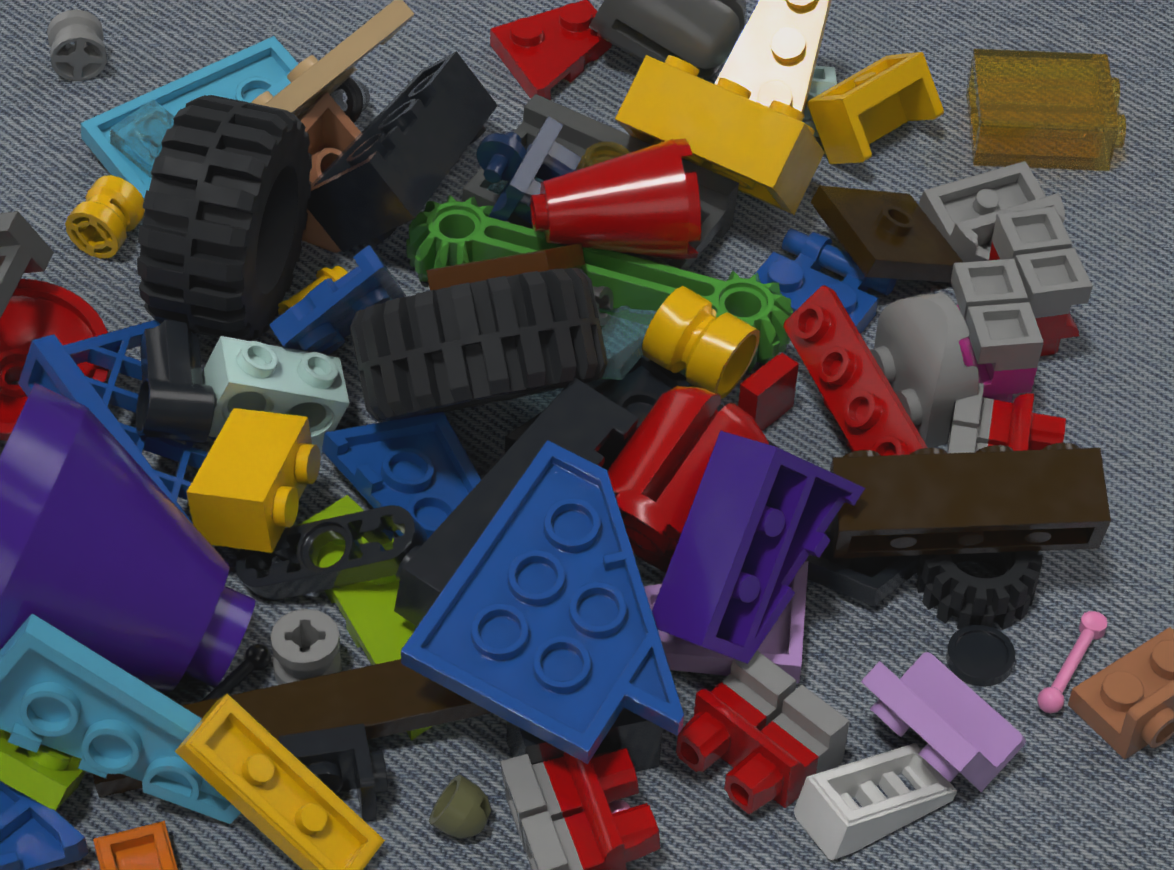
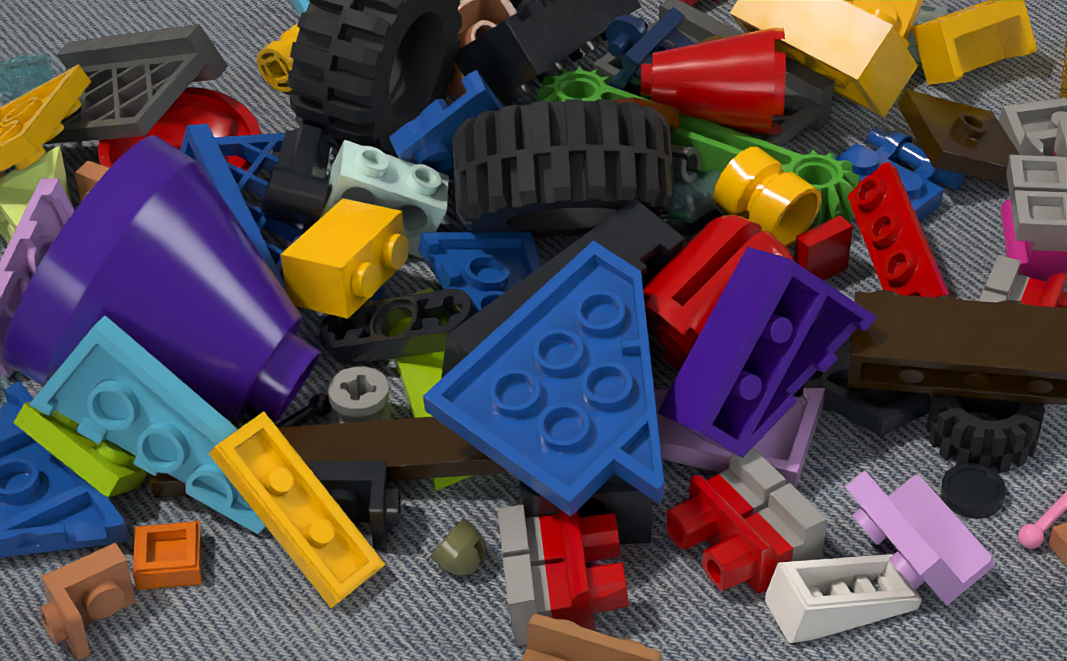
camera: 15 degrees right, 5 degrees down
(924, 360) = (968, 234): light grey slope -> none

